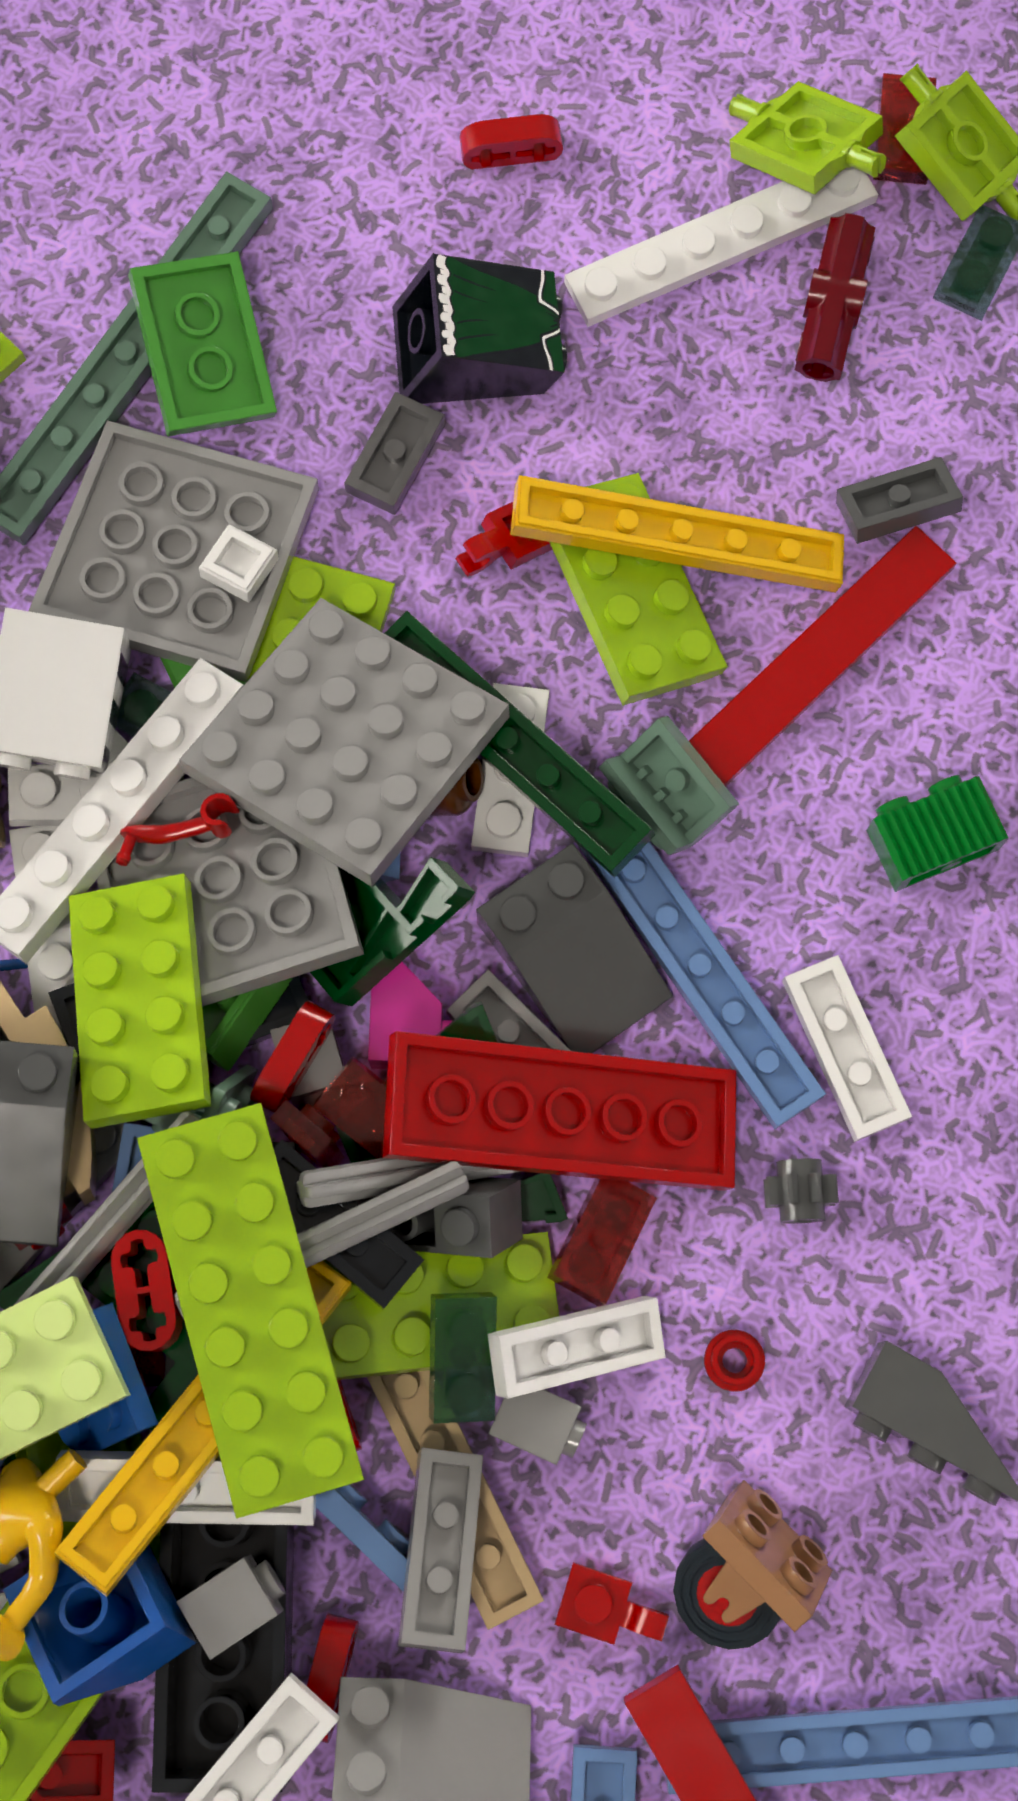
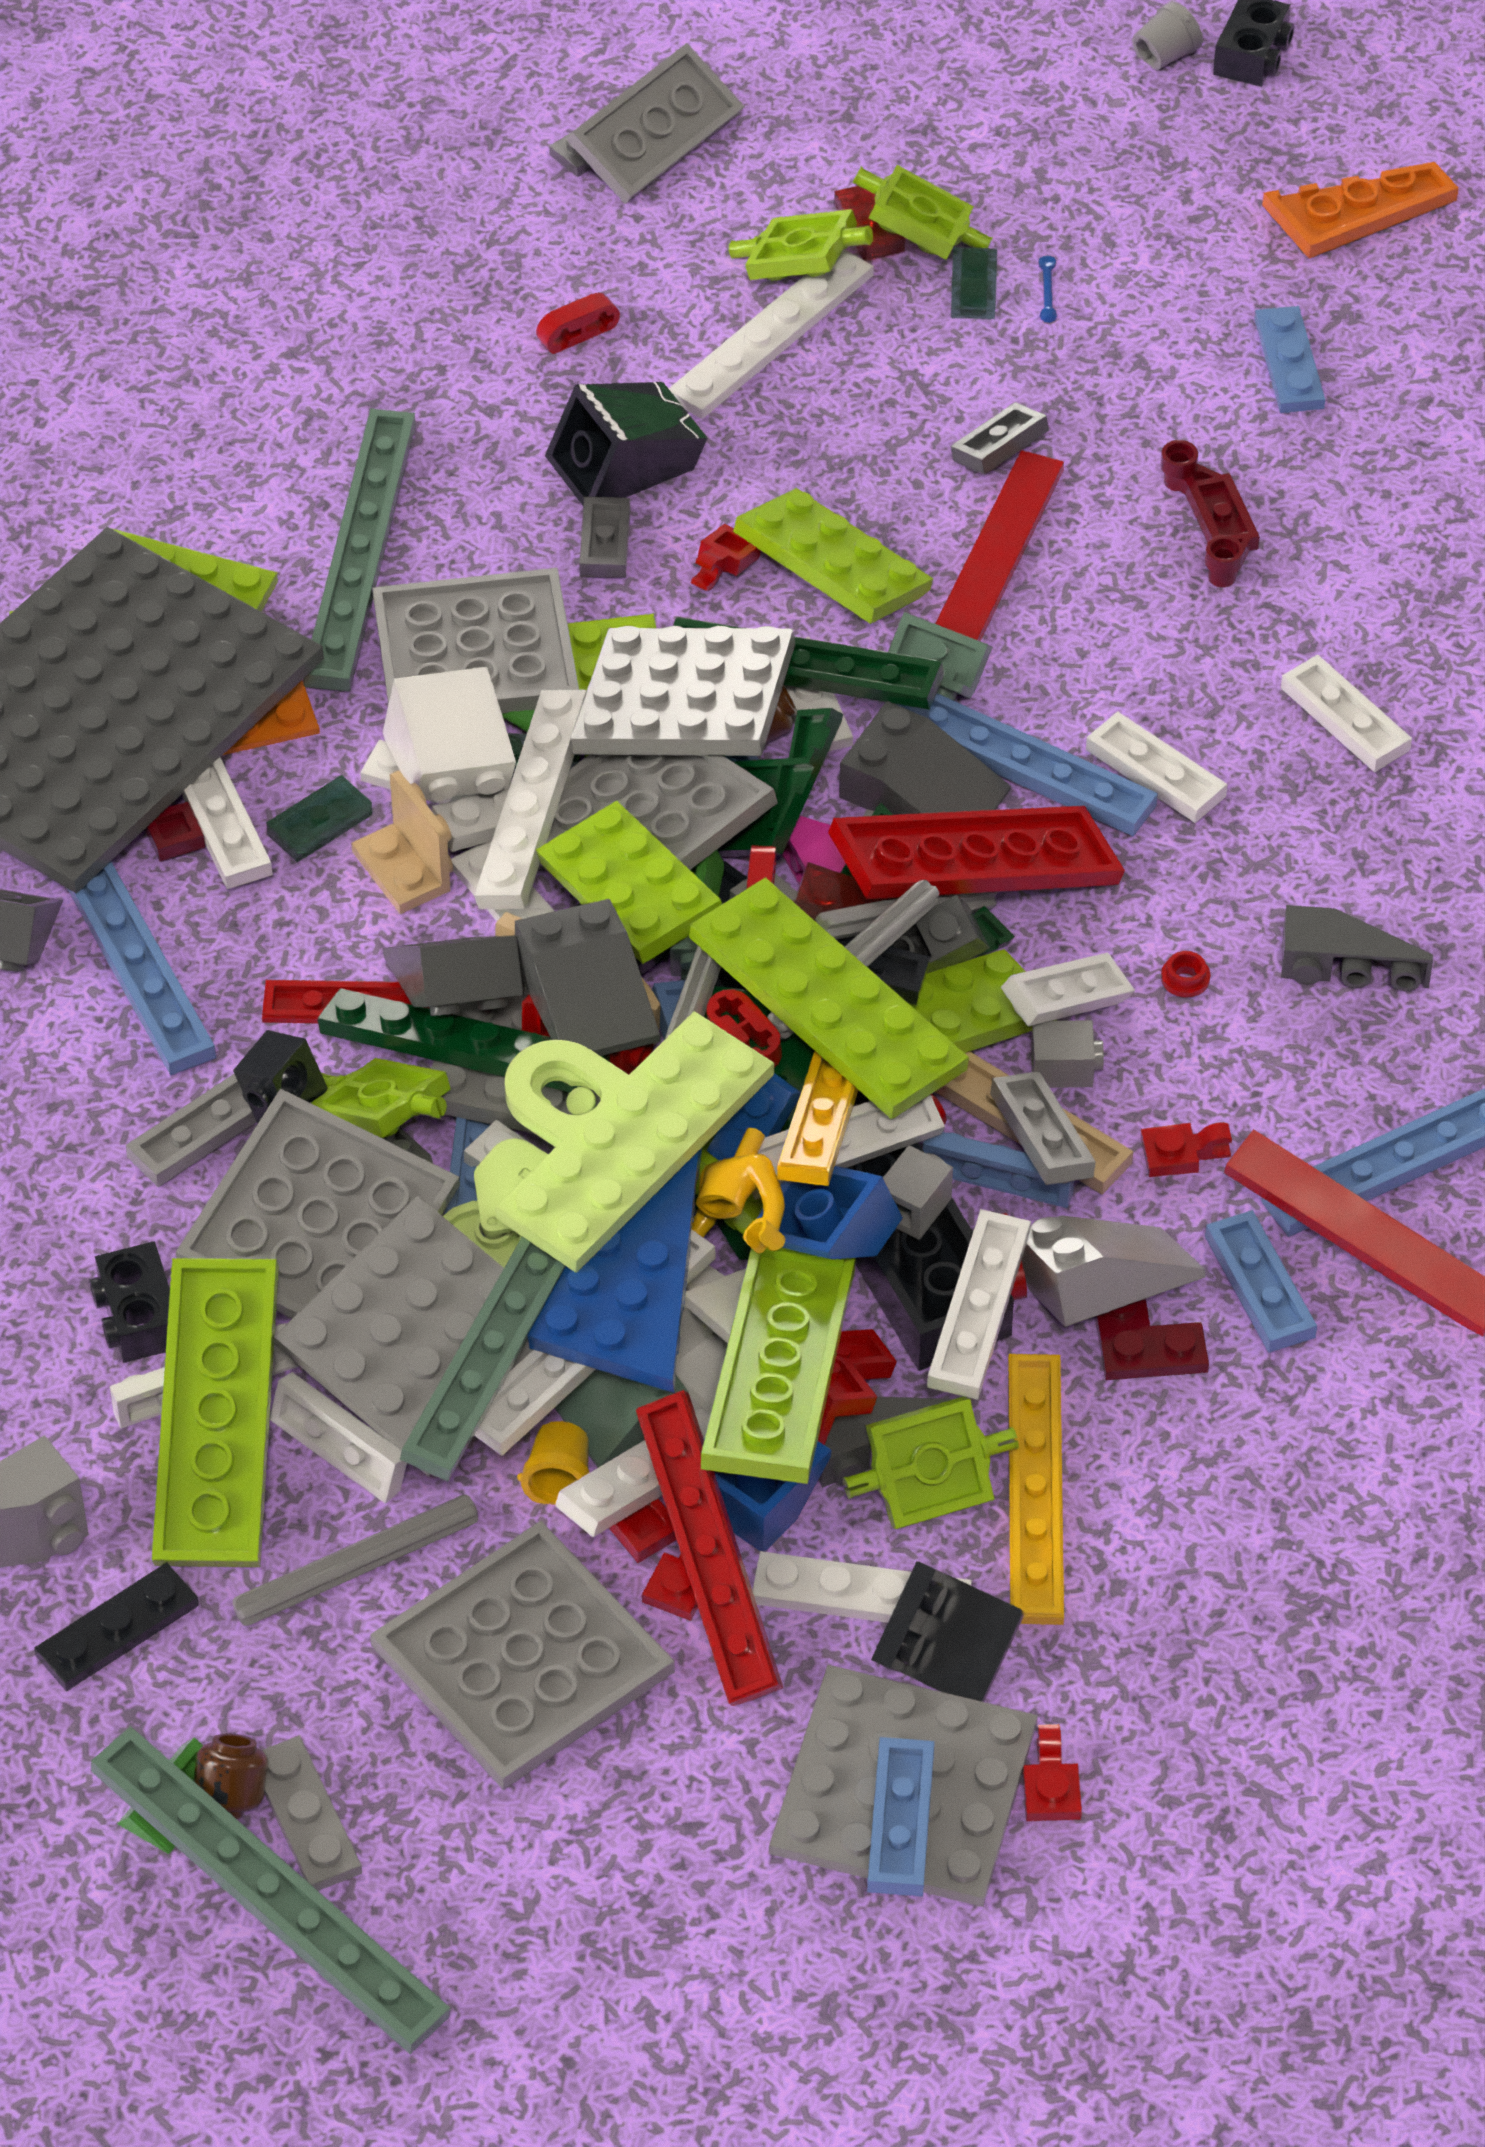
camera: 25 degrees left, 25 degrees down
(163, 834) = (619, 770): red piece -> none
(202, 343) = (420, 513): bright green plate -> none
(238, 563) = (533, 629): white tile -> none
(460, 1357) = (990, 1016): clear green plate -> none
(601, 1239) = (1045, 930): clear red plate -> none
(677, 534) = (850, 505): yellow tile -> none
(749, 1573) = (1268, 1076): medium nougat plate -> none
(801, 1191) = (1174, 854): dark grey gear -> none
(835, 298) = (880, 336): dark red piece -> none
(935, 831) = (1145, 619): green brick -> none

